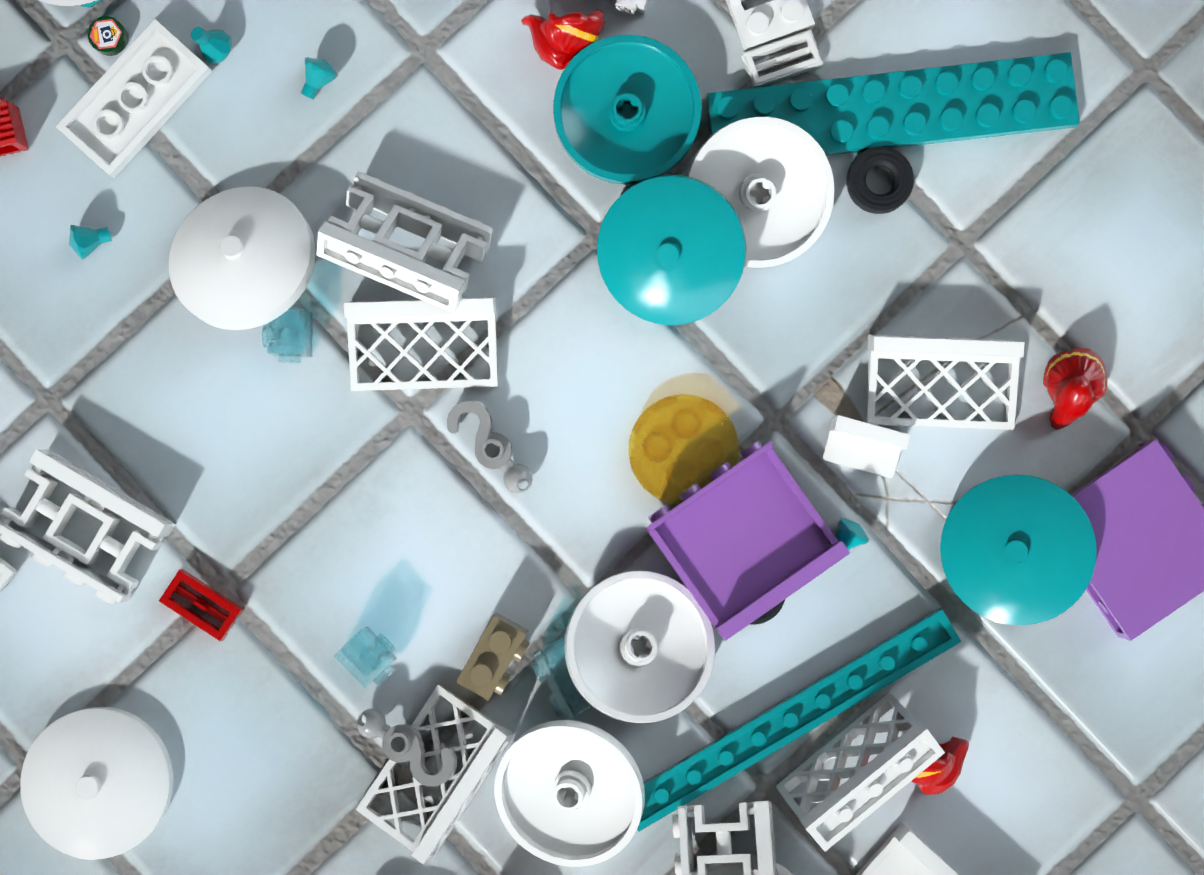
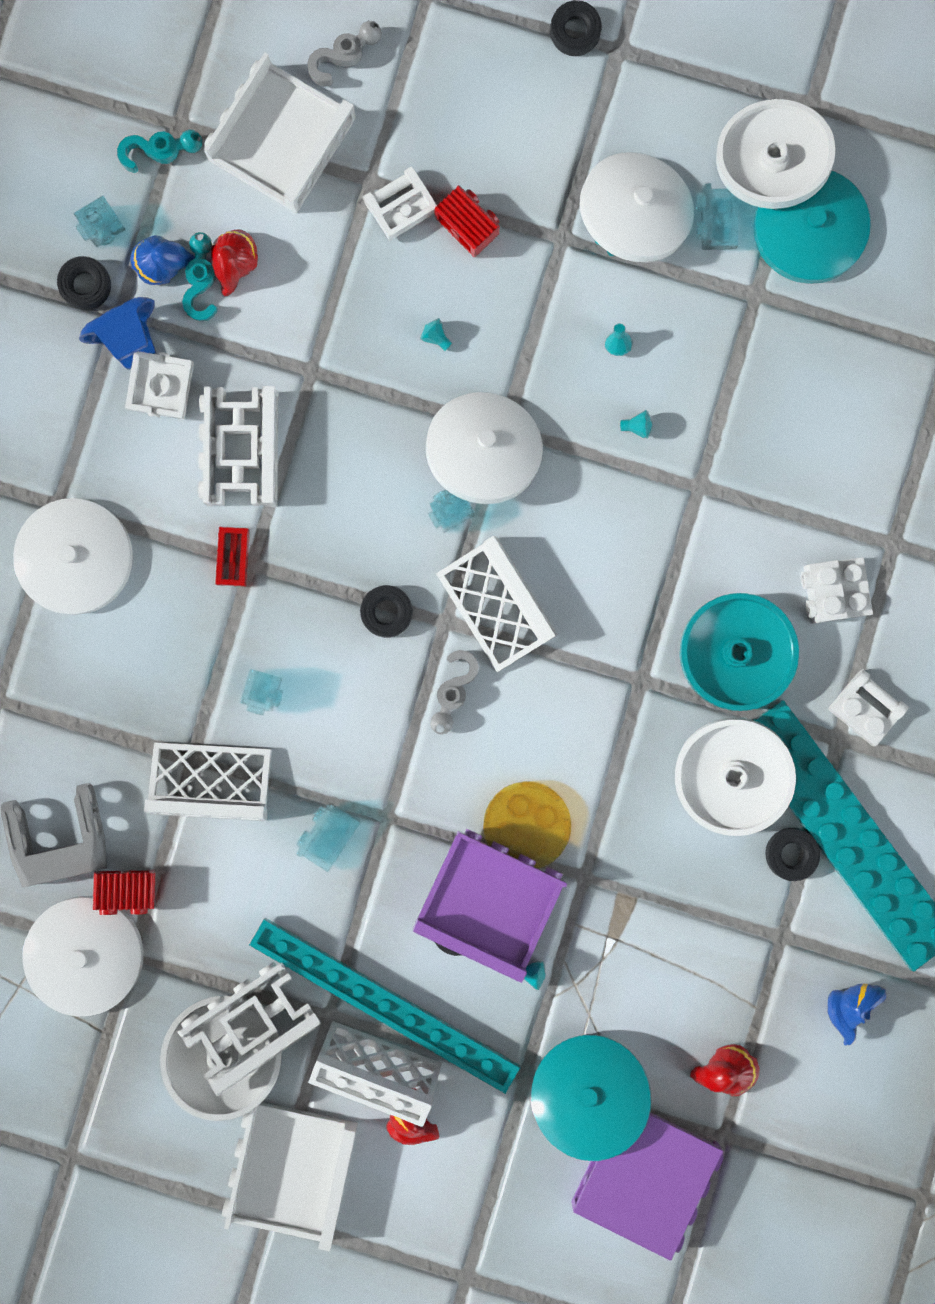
camera: 55 degrees right, 0 degrees up
(107, 36) = (583, 266): tile -> none
(134, 98) = (550, 310): white plate -> none
(344, 453) = (380, 594): none -> black tyre
(397, 264) = (540, 556): white fence -> none
(405, 744) = (217, 751): light grey piece -> none
(492, 655) = (311, 776): dark tan brick -> none
(563, 36) = (761, 578): red hair -> none
(569, 793) = (248, 883): white dish -> none
(639, 647) = (374, 874): white dish -> none
(671, 249) = (659, 739): teal dish -> none
(753, 70) = (818, 721): white tile -> none
(864, 446) = (601, 949): white panel -> none
(943, 349) = (702, 970): white fence -> none
(1080, 210) = (852, 1007): none -> blue hair

